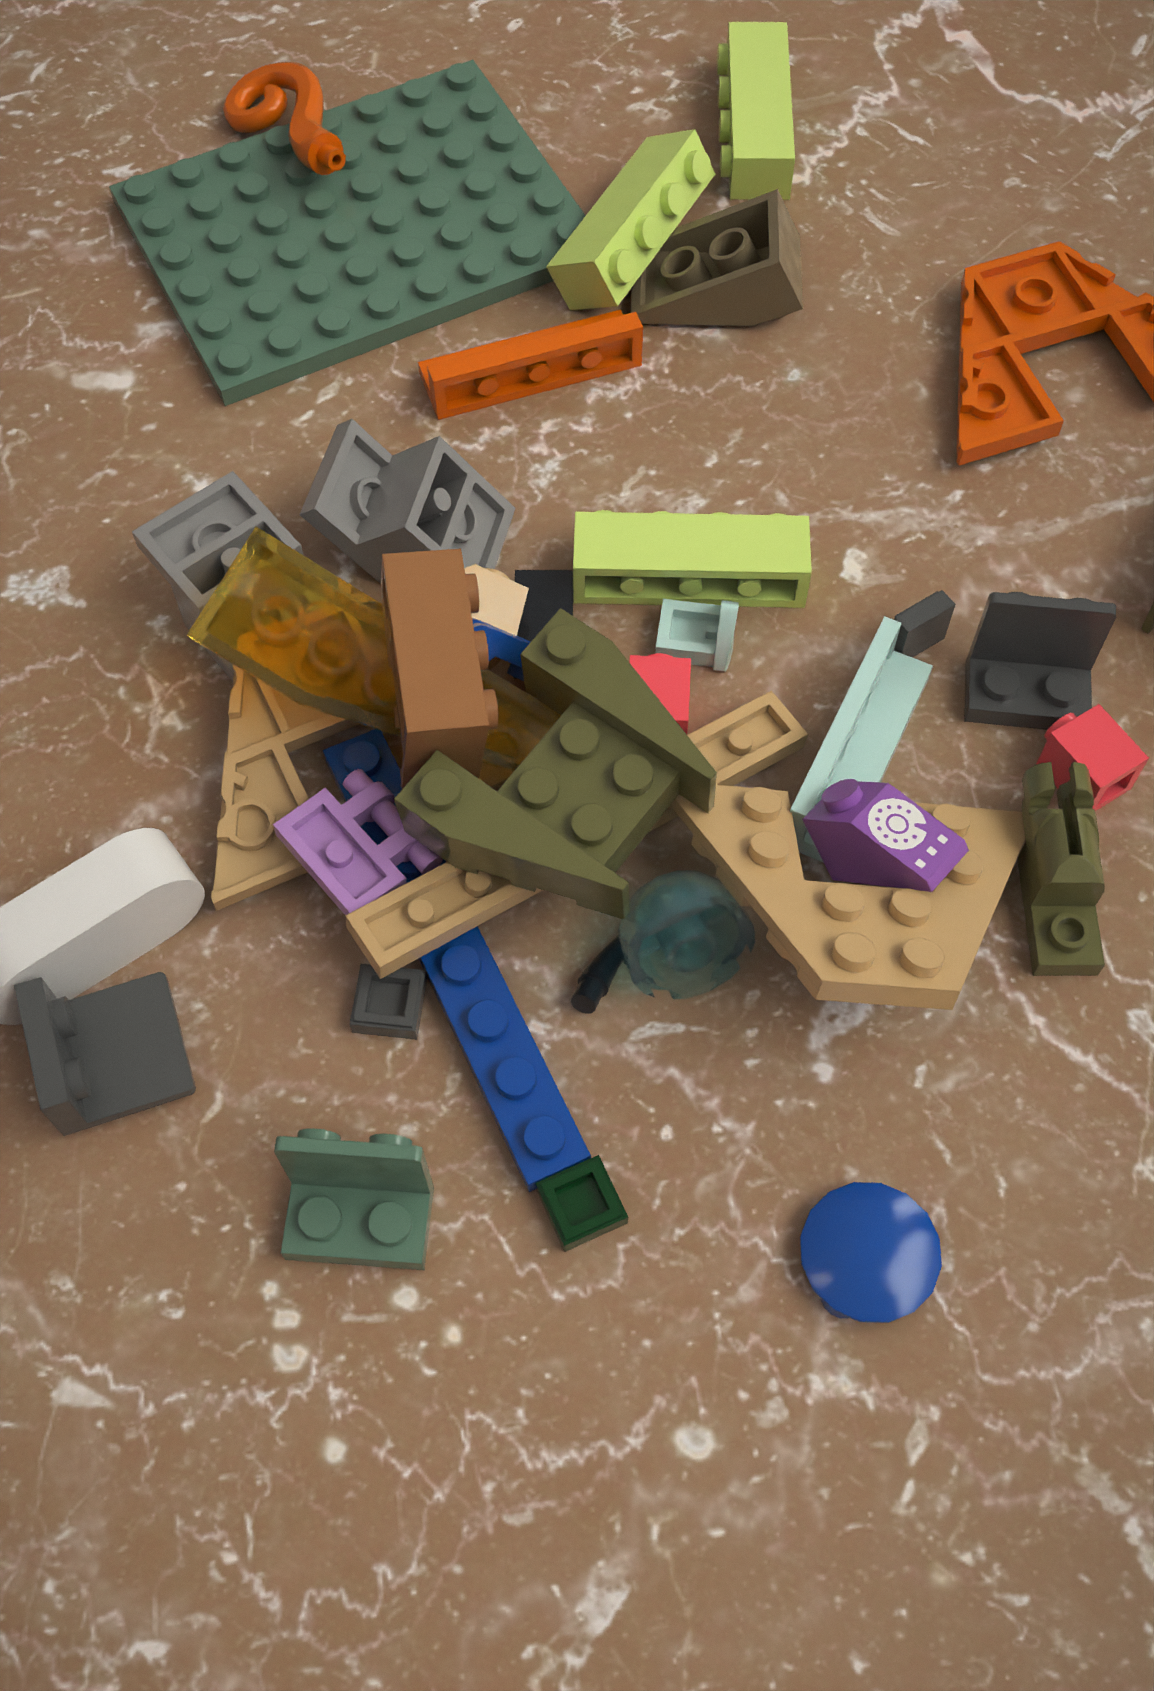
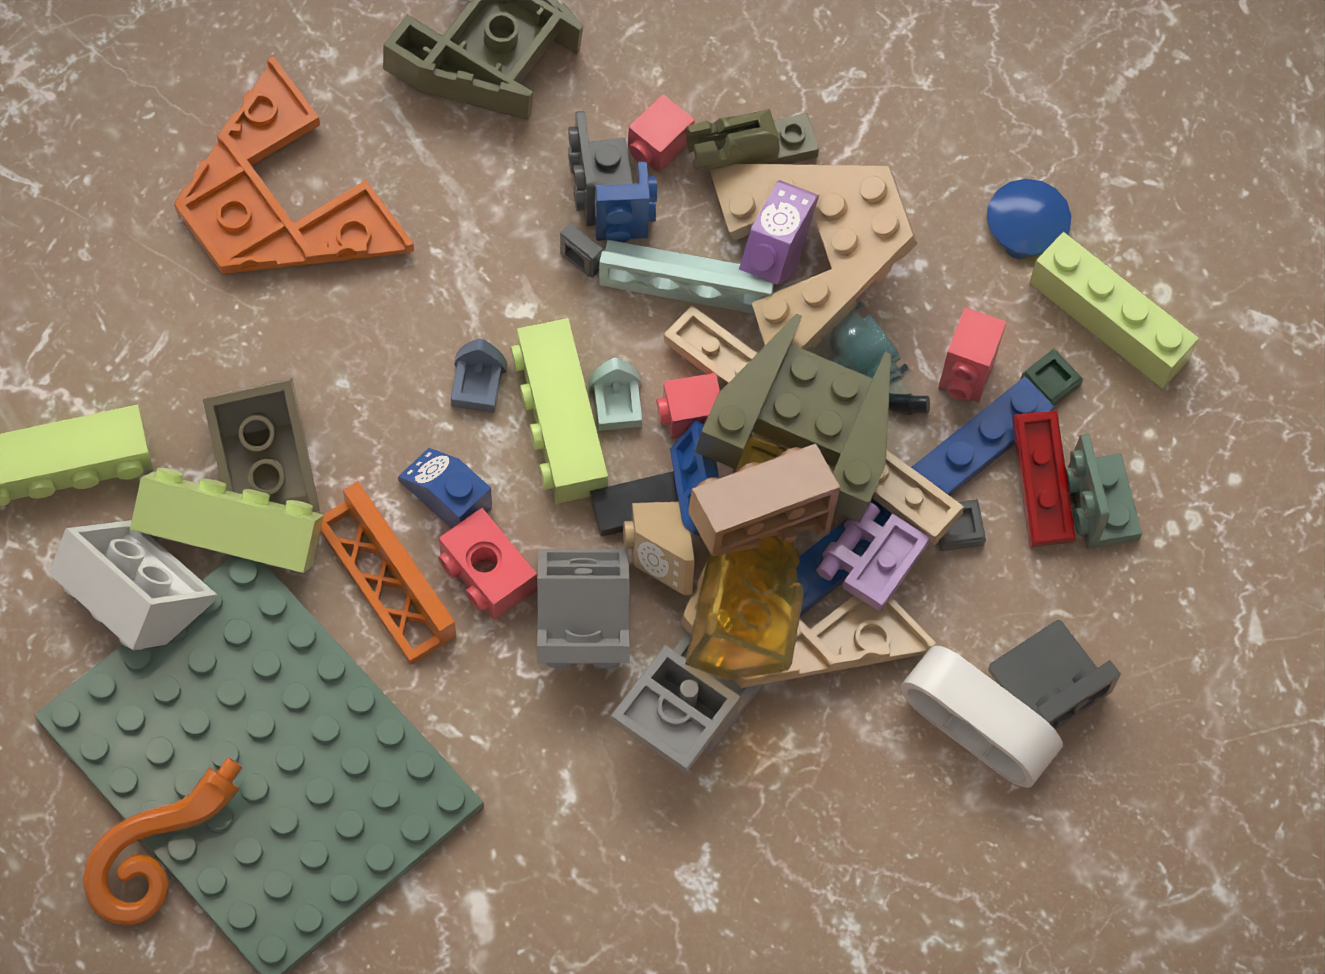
camera: 110 degrees left, 5 degrees up
(450, 1127) = (1043, 478): none -> red tile
(513, 440) = (479, 540): none -> coral brick
(578, 125) = (129, 583): none -> white slope
(614, 428) = (446, 486): none -> blue slope
(628, 1060) = (971, 355): none -> coral brick
(664, 1324) = (1113, 310): none -> yellowish green brick
(761, 489) = (478, 376): none -> sand blue tile
(970, 684) = (626, 208): none -> blue bracket

